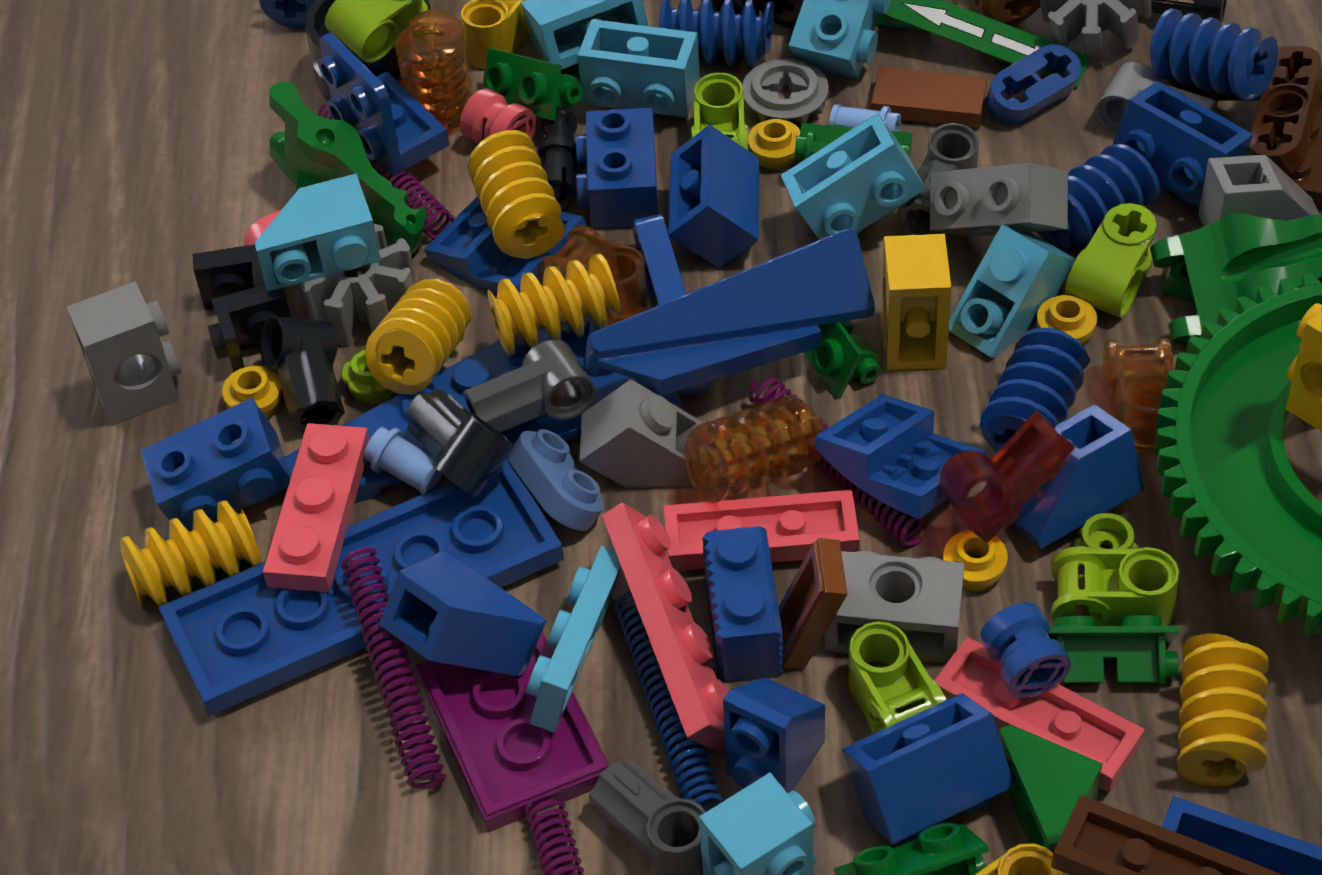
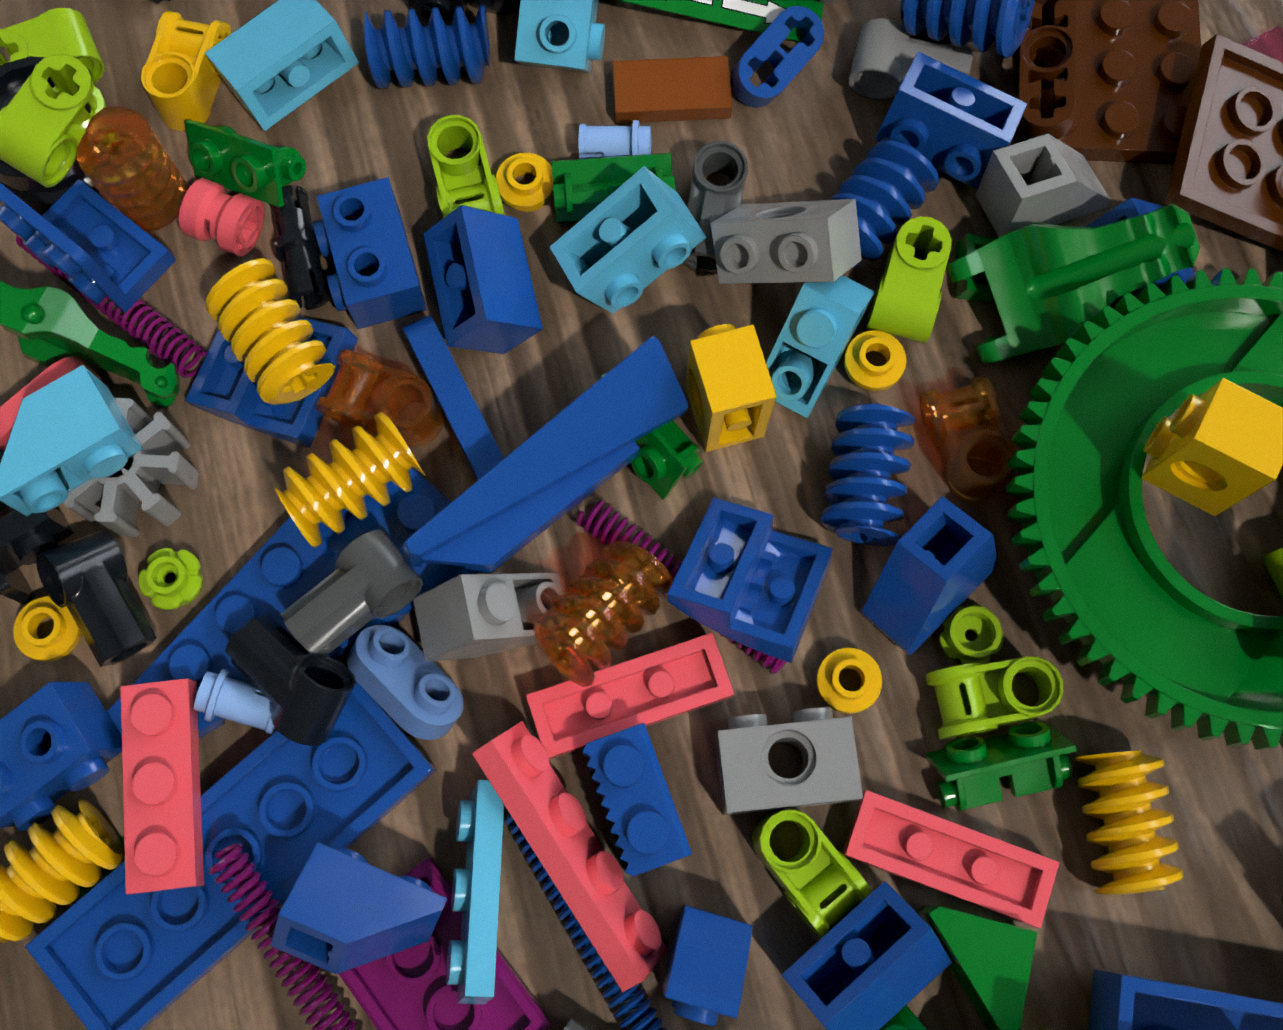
camera: 20 degrees left, 25 degrees up
(417, 336) = (210, 538): yellow piece -> none
(639, 67) = (358, 119): medium azure brick -> none
(766, 82) = (541, 98): light grey gear -> none
(812, 602) = (713, 802): dark orange tile -> none
(1012, 476) = (868, 617): clear red plate -> none
(1027, 653) = (937, 817): blue wheel -> none

